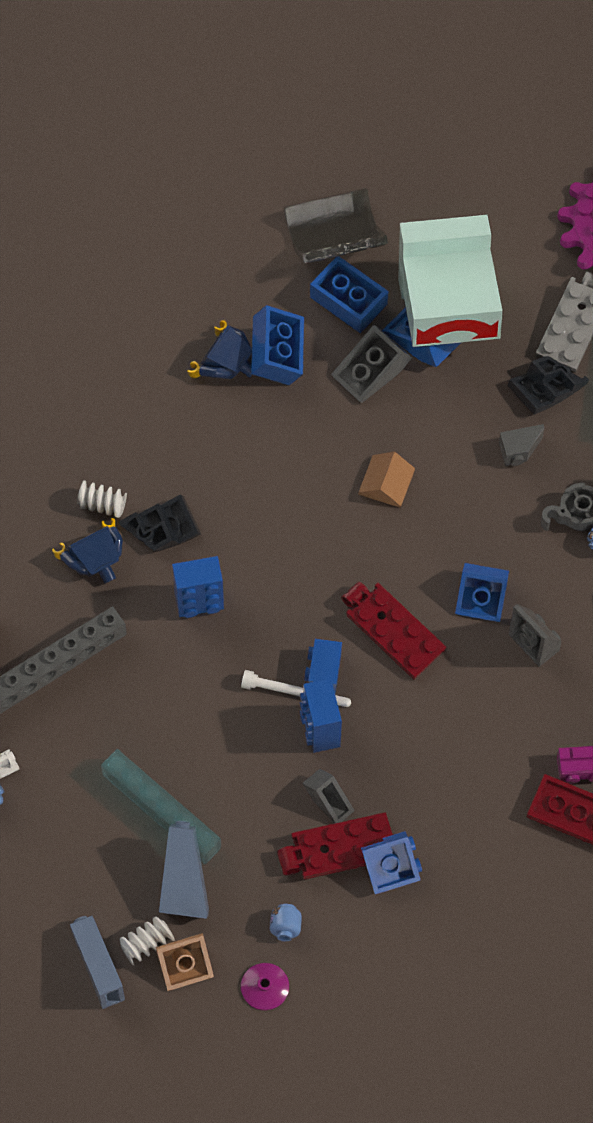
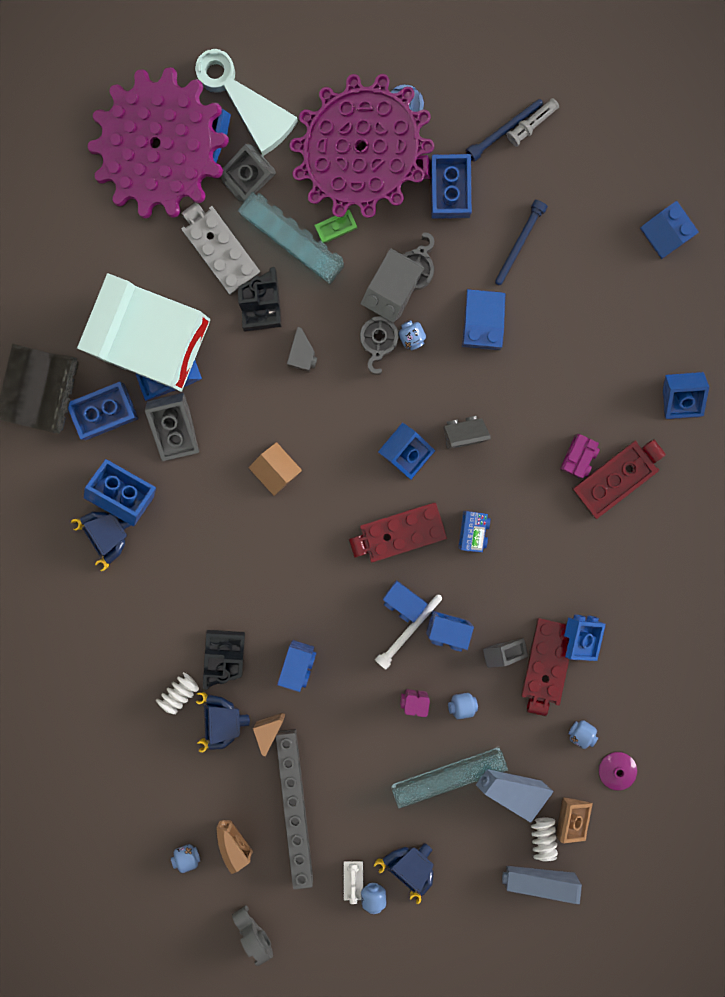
camera: 60 degrees left, 25 degrees up
(40, 816) = (410, 868): none -> dark blue torso
(111, 593) = (266, 730): none -> medium nougat slope
(224, 727) = (415, 702): none -> magenta brick
(246, 781) = (463, 706): none -> medium blue head
(438, 693) = (473, 531): none -> blue slope

